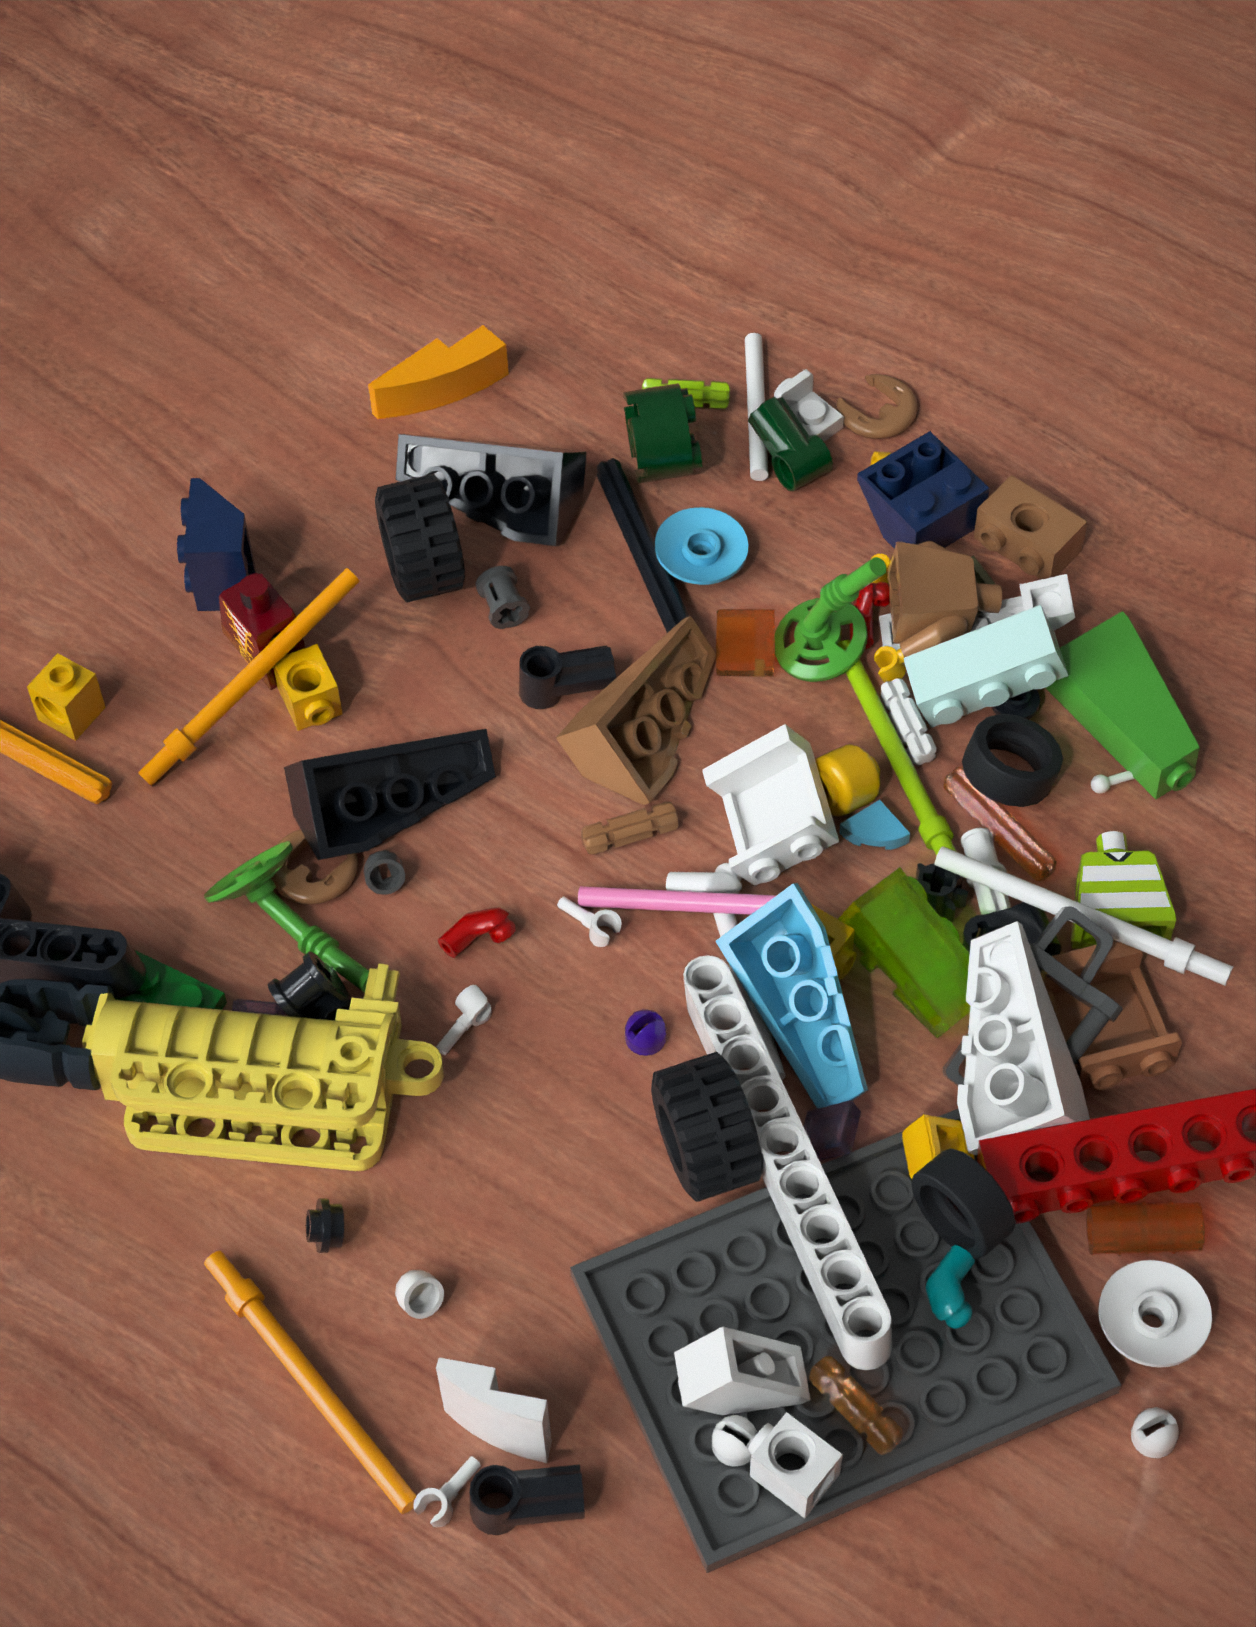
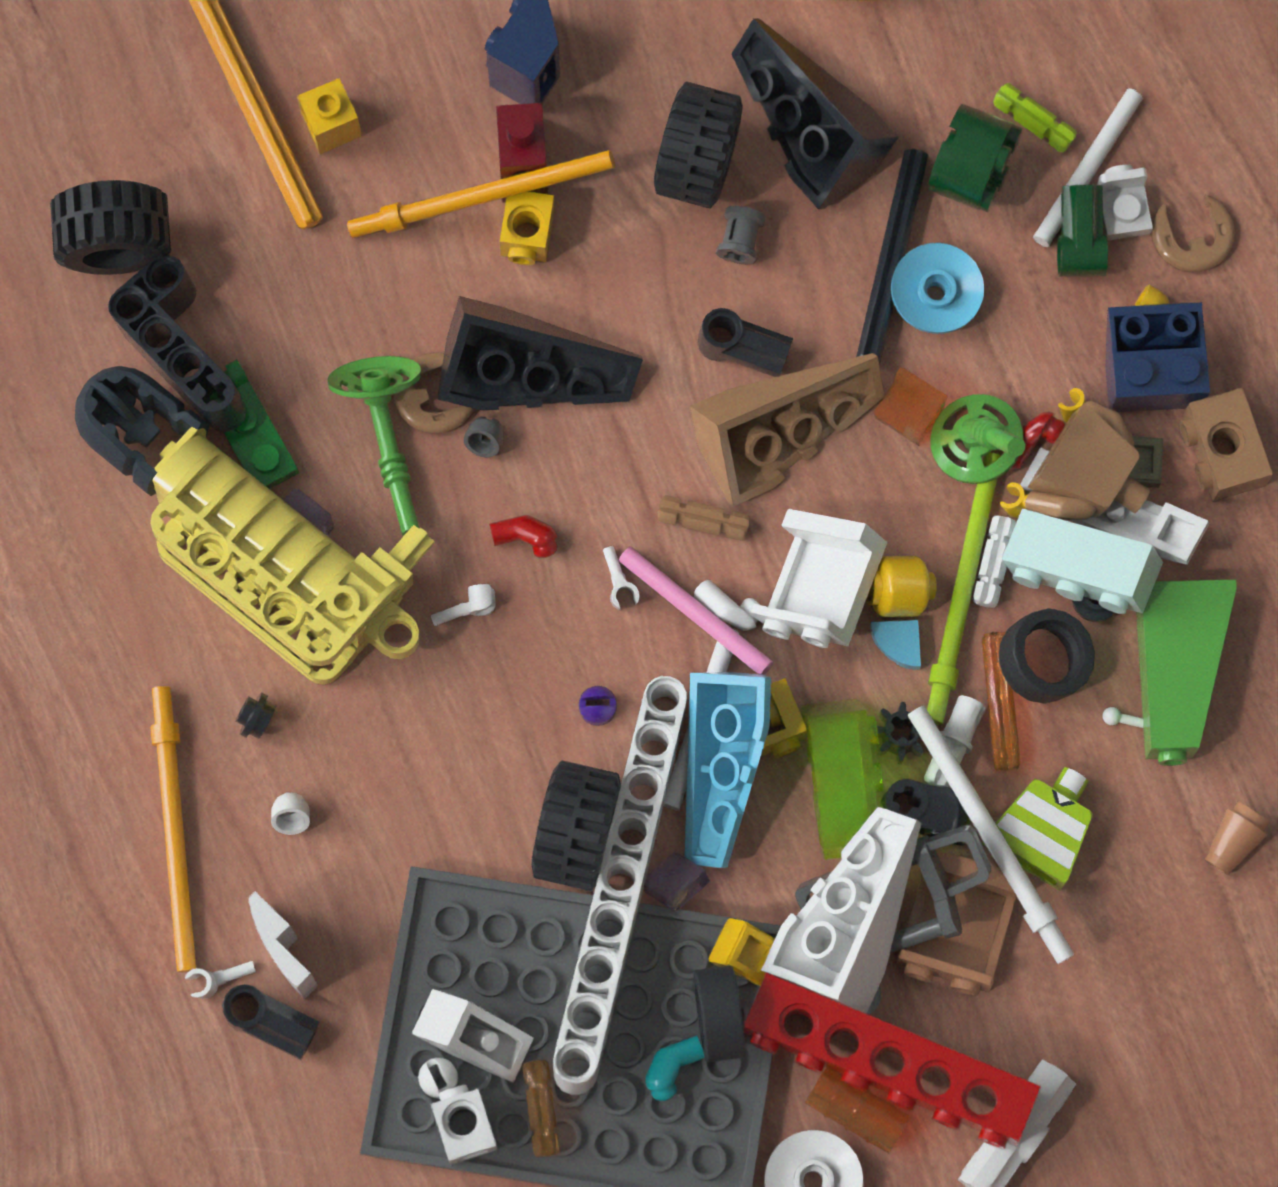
camera: 30 degrees right, 20 degrees up
(311, 990) = (357, 521): black piece -> none

